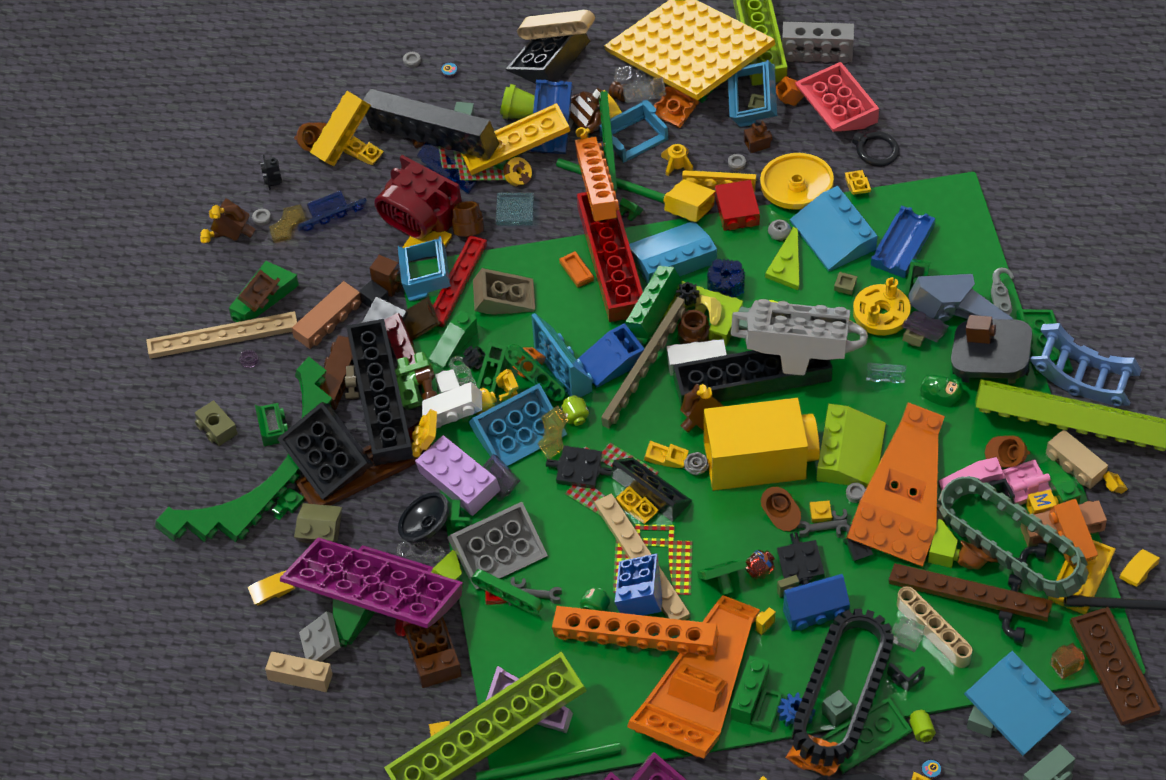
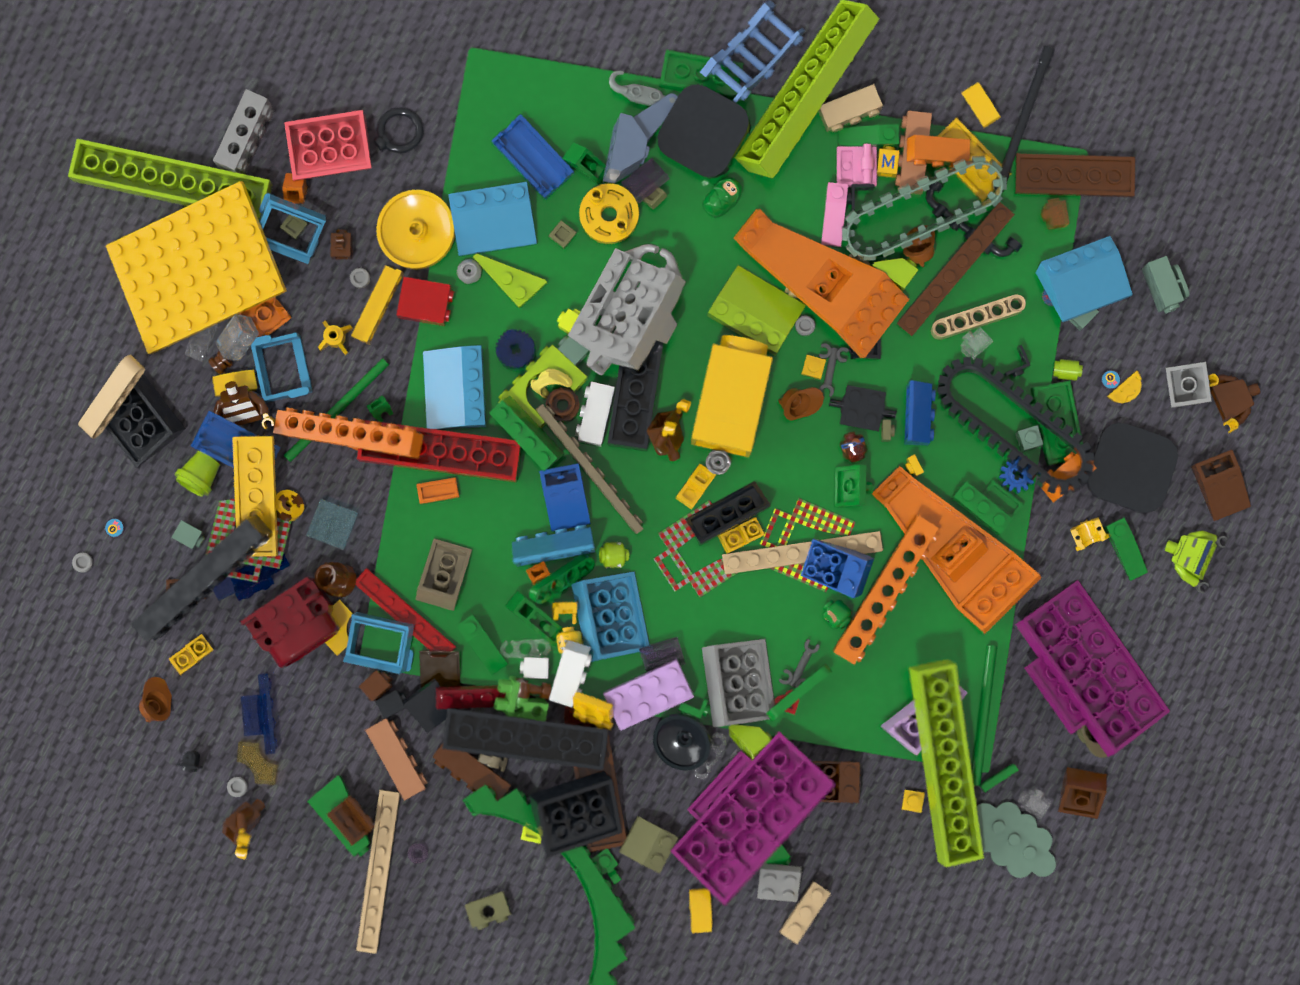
camera: 70 degrees left, 30 degrees up
(270, 423) = (509, 855): green window -> none
(340, 128) = (165, 671): yellow brick -> none
(474, 357) = (513, 631): black gear -> none
(553, 425) = (639, 589): clear yellow tile -> none
(579, 467) = (679, 574): black plate -> none
(607, 136) = (294, 401): green tile -> none
(688, 292) = (525, 391): black gear -> none
(689, 200) = (400, 347): yellow brick -> none
(857, 182) = (439, 169): yellow slope -> none
(886, 373) = (690, 234): clear light blue plate -> none
(980, 329) = (683, 133): reddish brown brick -> none
(1008, 449) = (820, 169): dark orange piece -> none
(1114, 483) = (884, 84): yellow plate -> none

